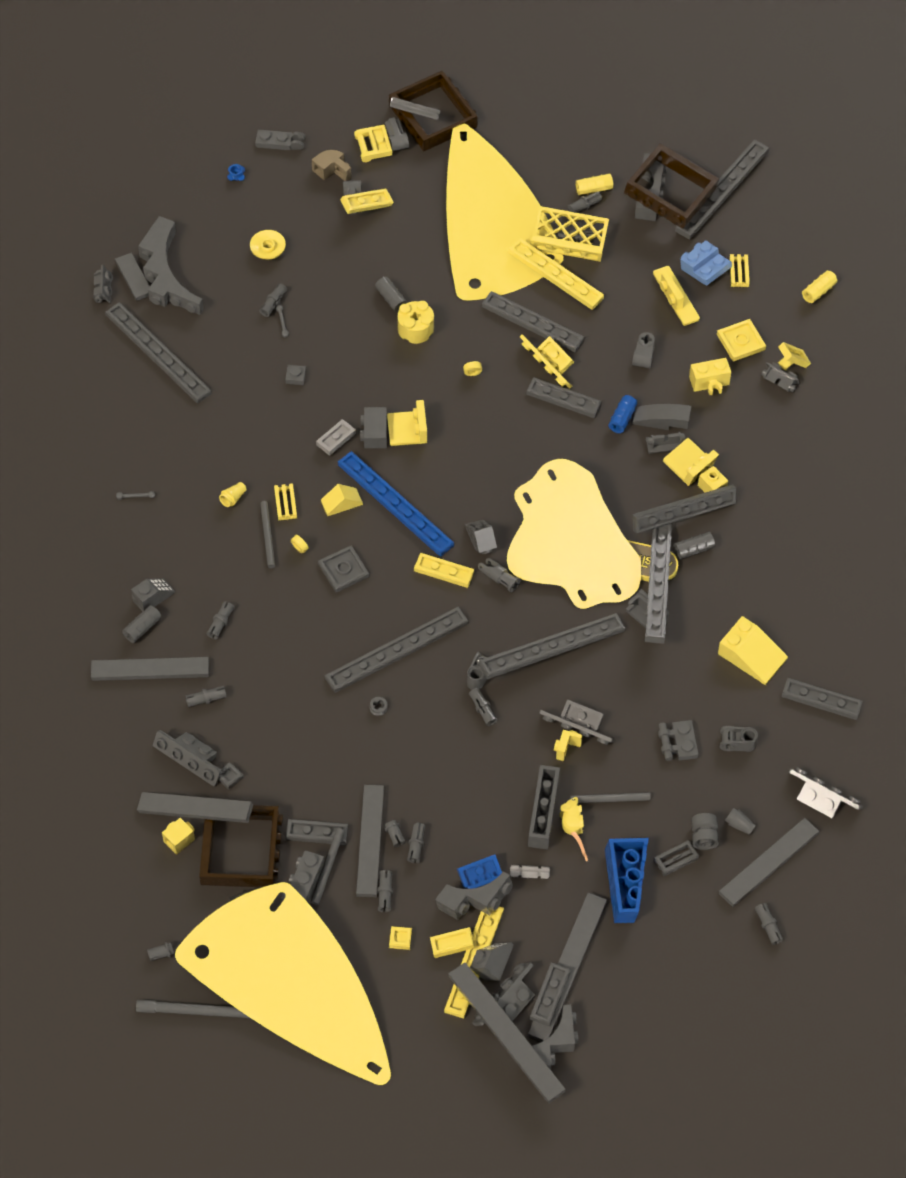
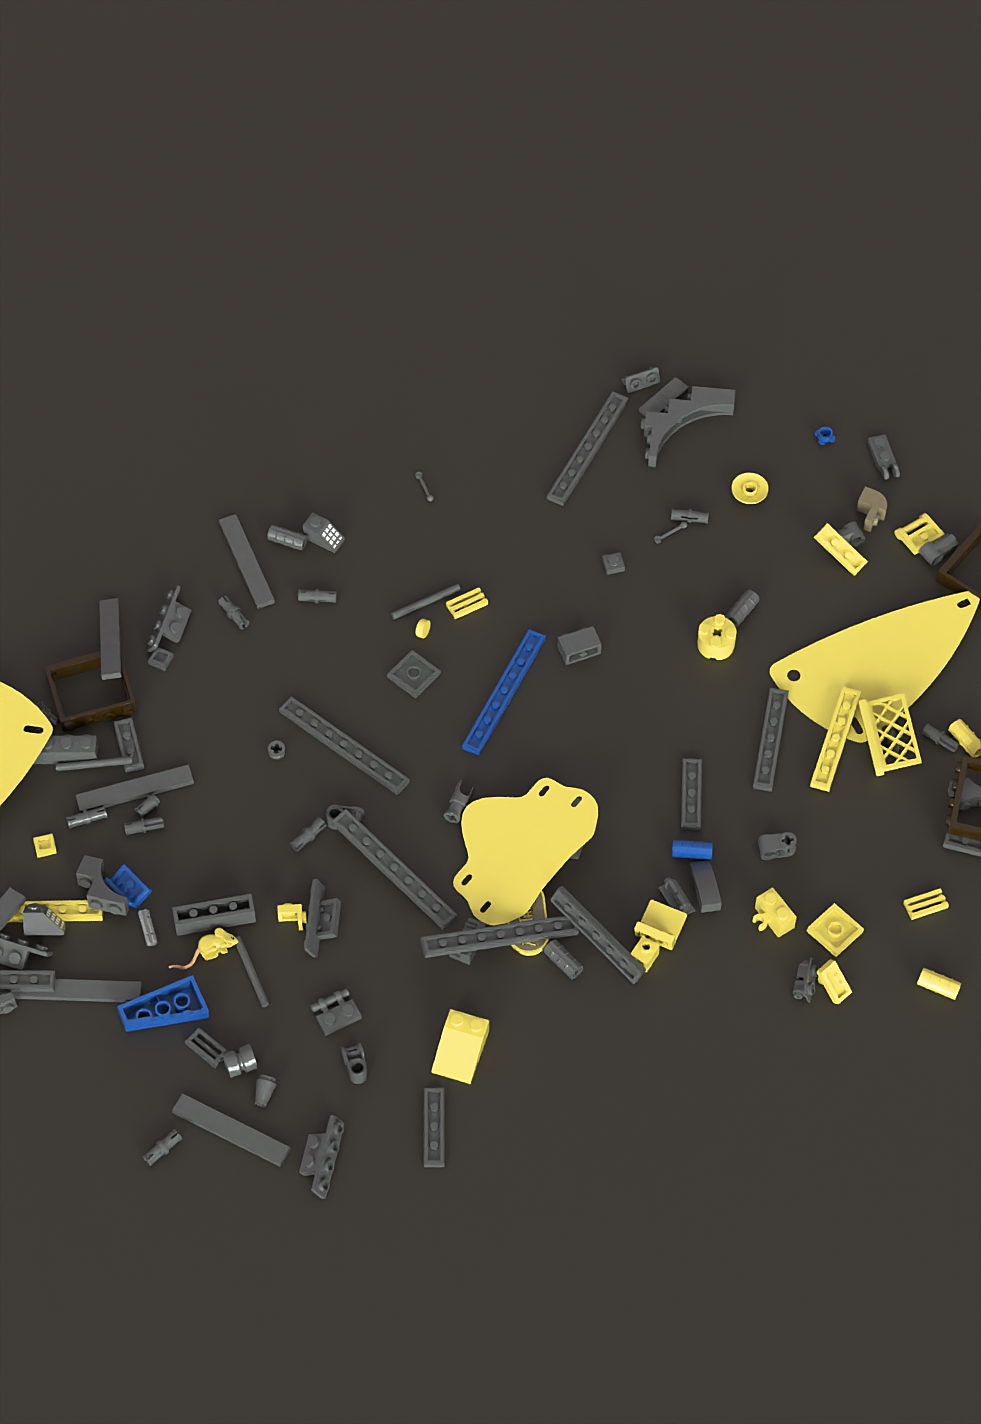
camera: 70 degrees right, 0 degrees up
(178, 835) = (83, 639): light yellow brick -> none
(232, 494) = (455, 558): light yellow cone -> none
(336, 437) = (555, 618): light grey plate -> none
(341, 499) = (489, 647): light yellow slope -> none
(408, 427) = (594, 672): light yellow bracket -> none
(415, 108) = (971, 549): dark grey axle -> none
(444, 570) = (446, 755): light yellow tile -> none
(452, 942) = (51, 886): light yellow tile -> none
(472, 368) = (685, 703): light yellow tile -> none
(481, 536) = (494, 771): slope -> none
(553, 356) = (729, 766): light yellow bracket -> none
(676, 295) = (863, 852): light yellow bracket -> none
(704, 263) = (916, 867): medium blue plate -> none

